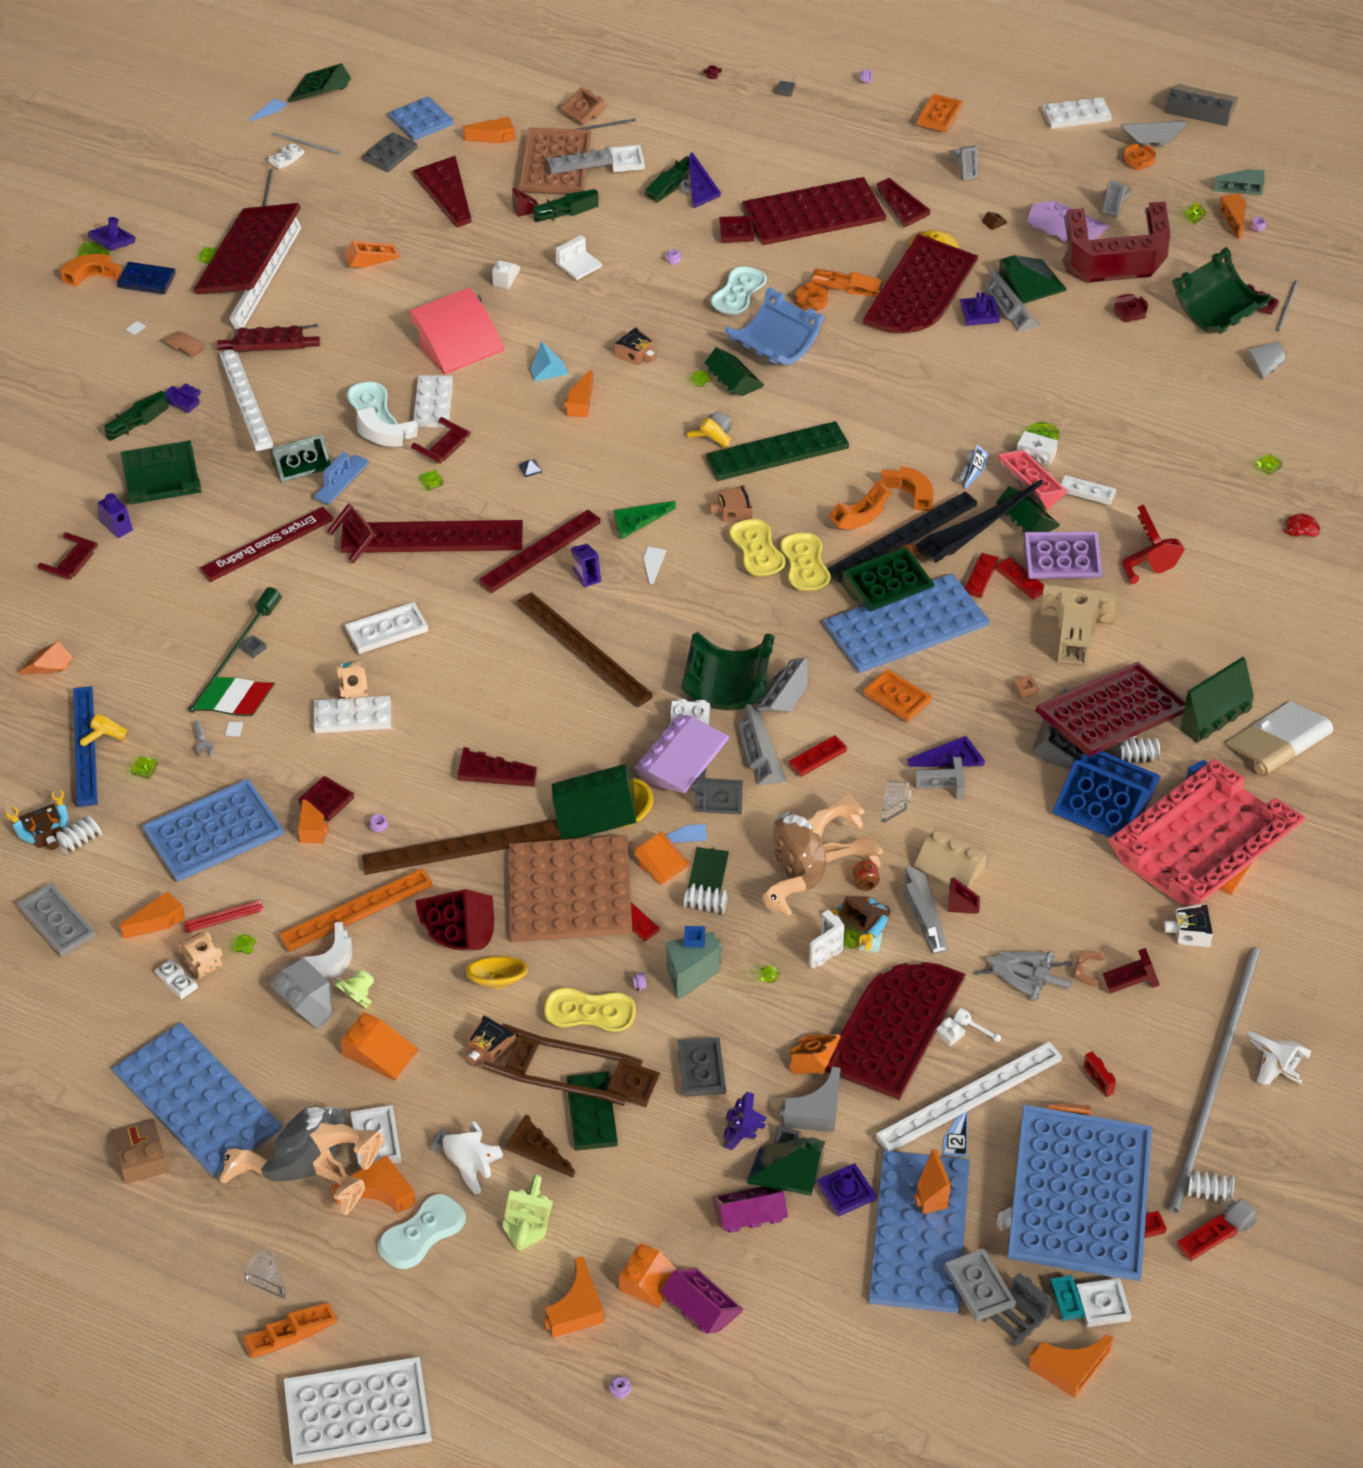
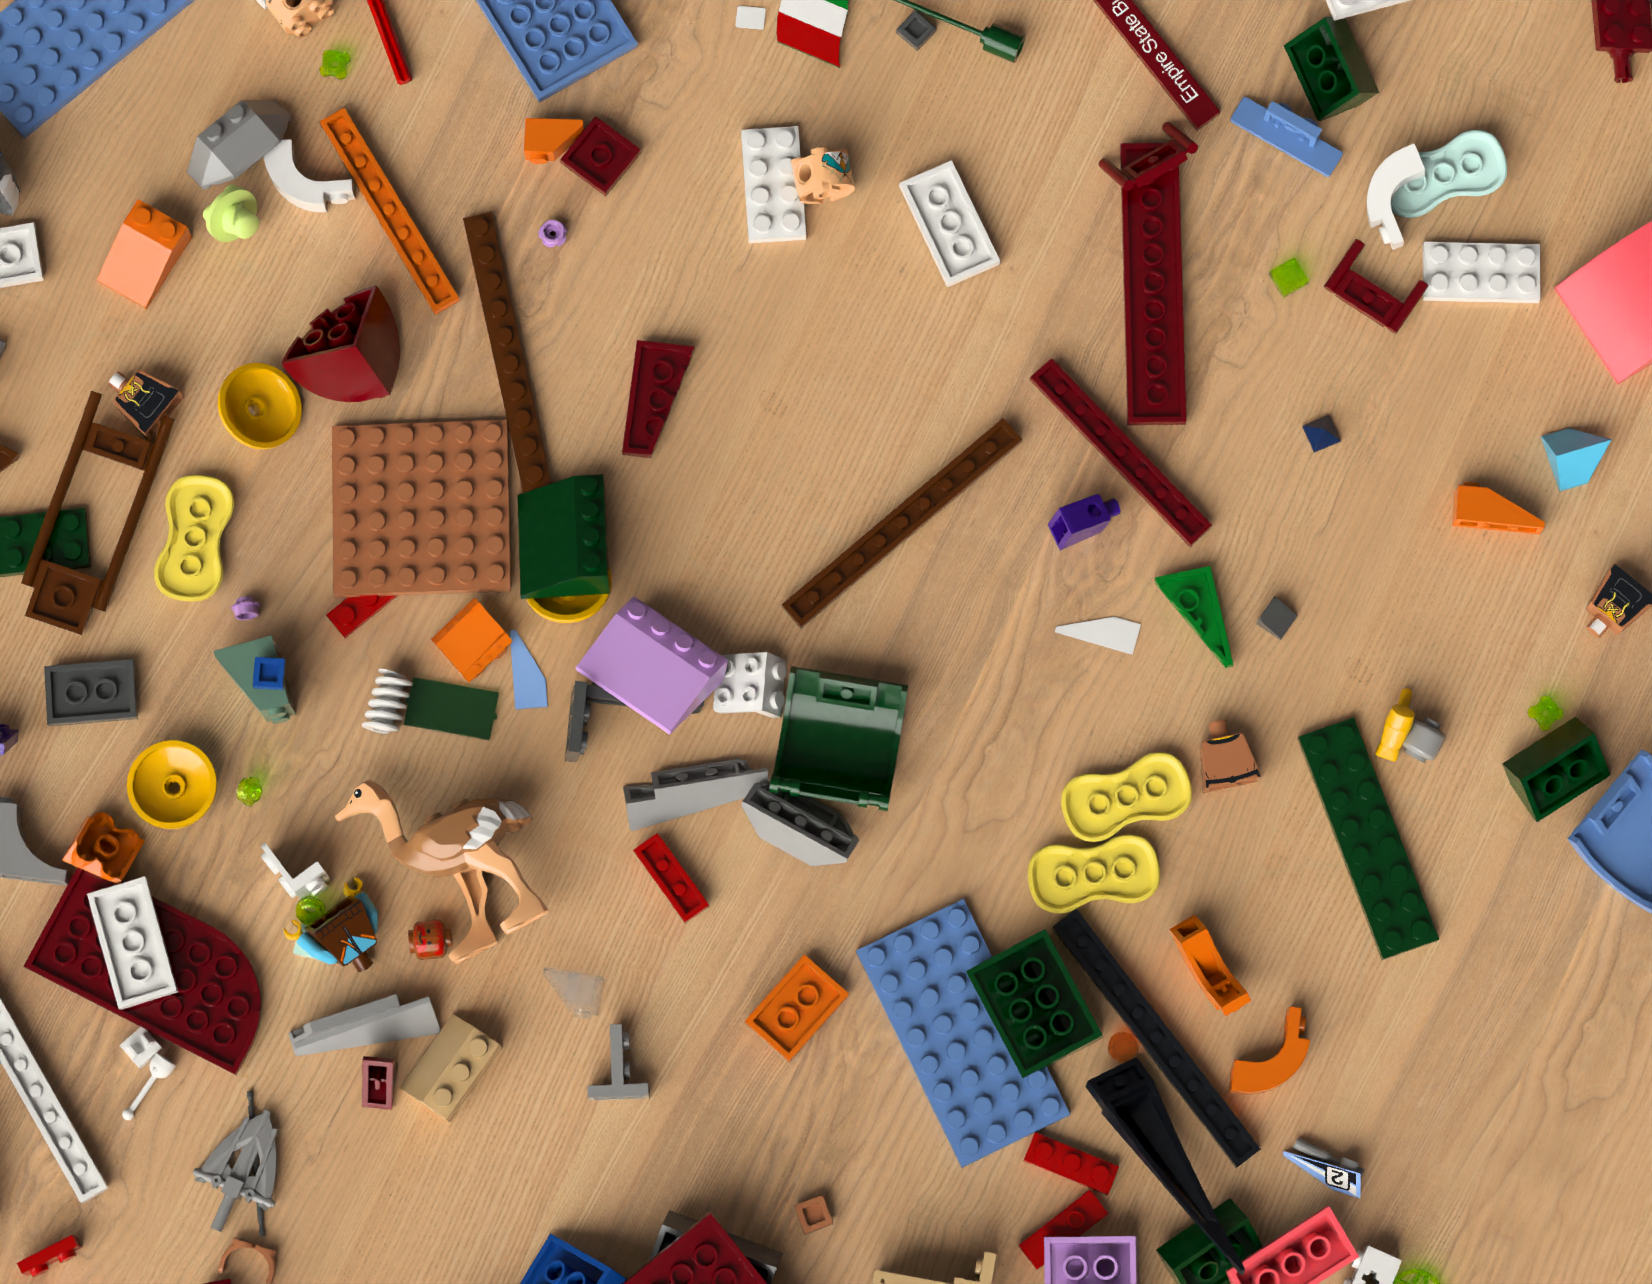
camera: 90 degrees right, 30 degrees up
(644, 487) = (1276, 618): none -> dark grey slope
(768, 1003) = (158, 770): none -> yellow dish
(880, 1027) = (132, 943): none -> white plate
(943, 755) = (671, 1089): dark purple wing -> none

